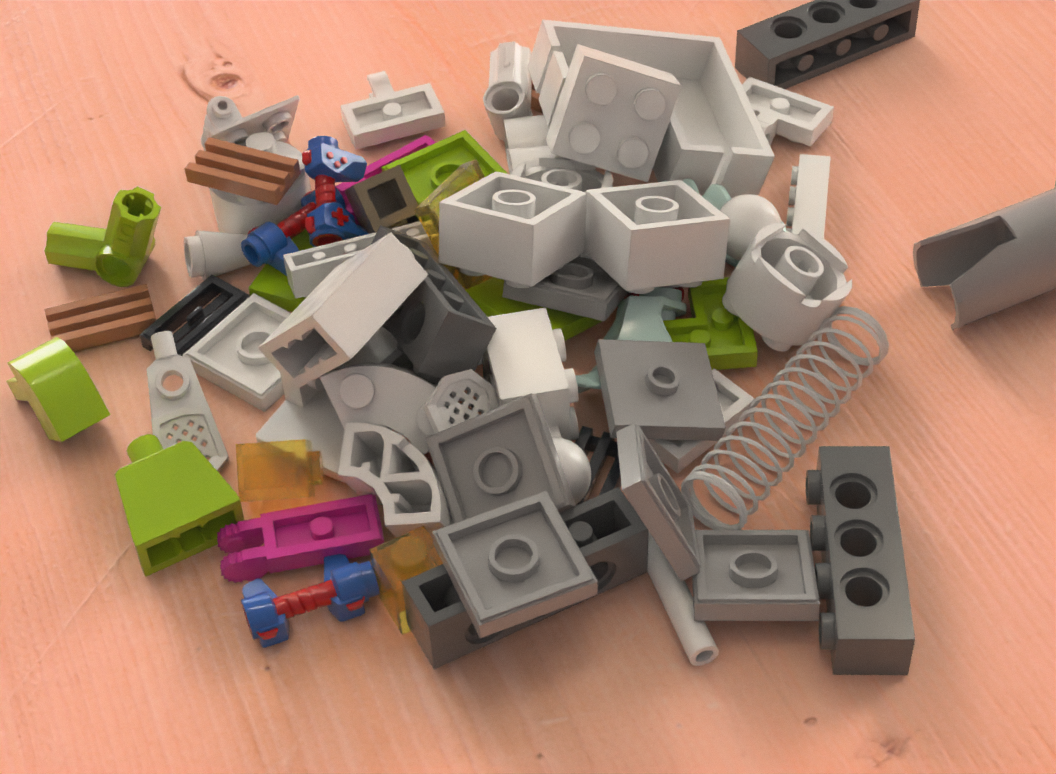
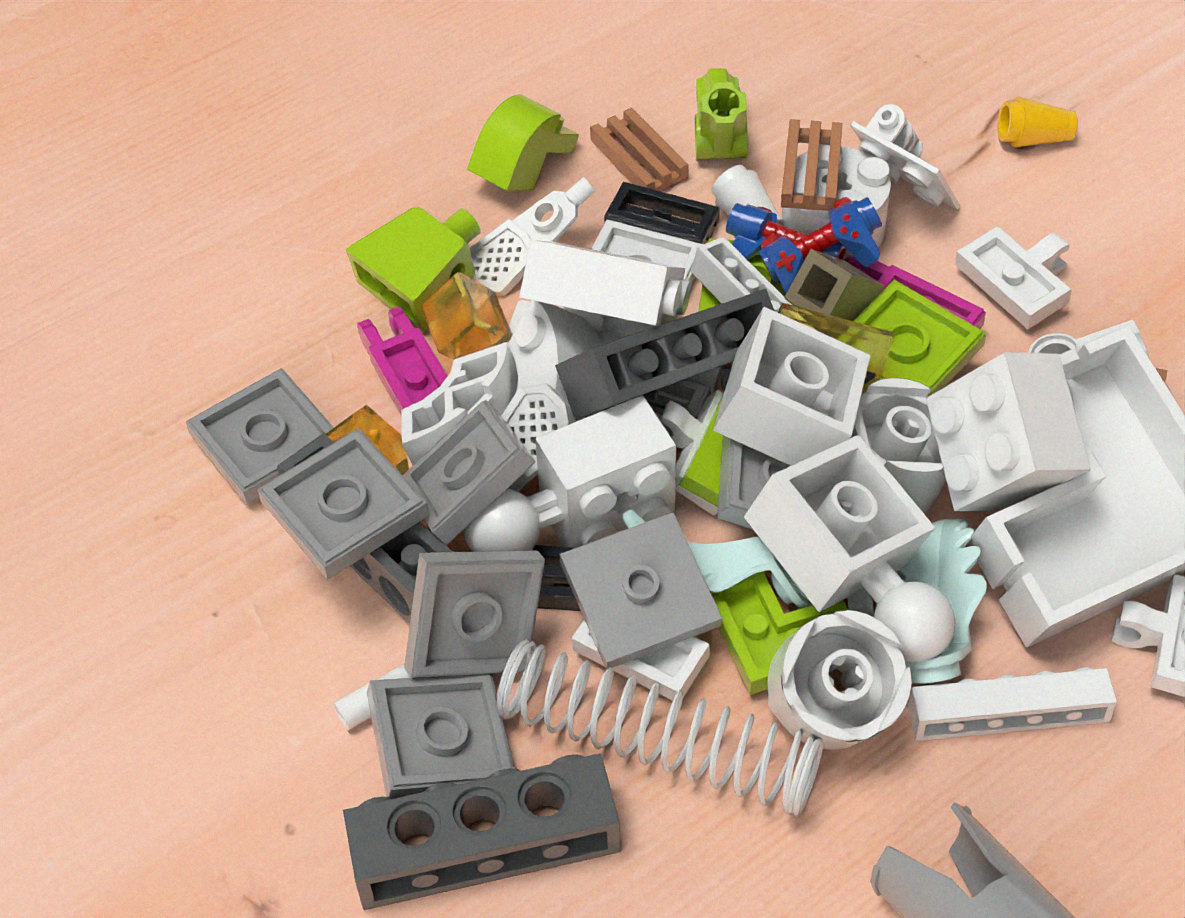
camera: 75 degrees right, 5 degrees up
(227, 64) = (1035, 123): none -> yellow cone
(336, 673) = (257, 431): none -> light grey plate
(343, 592) = (318, 373): blue piece -> none

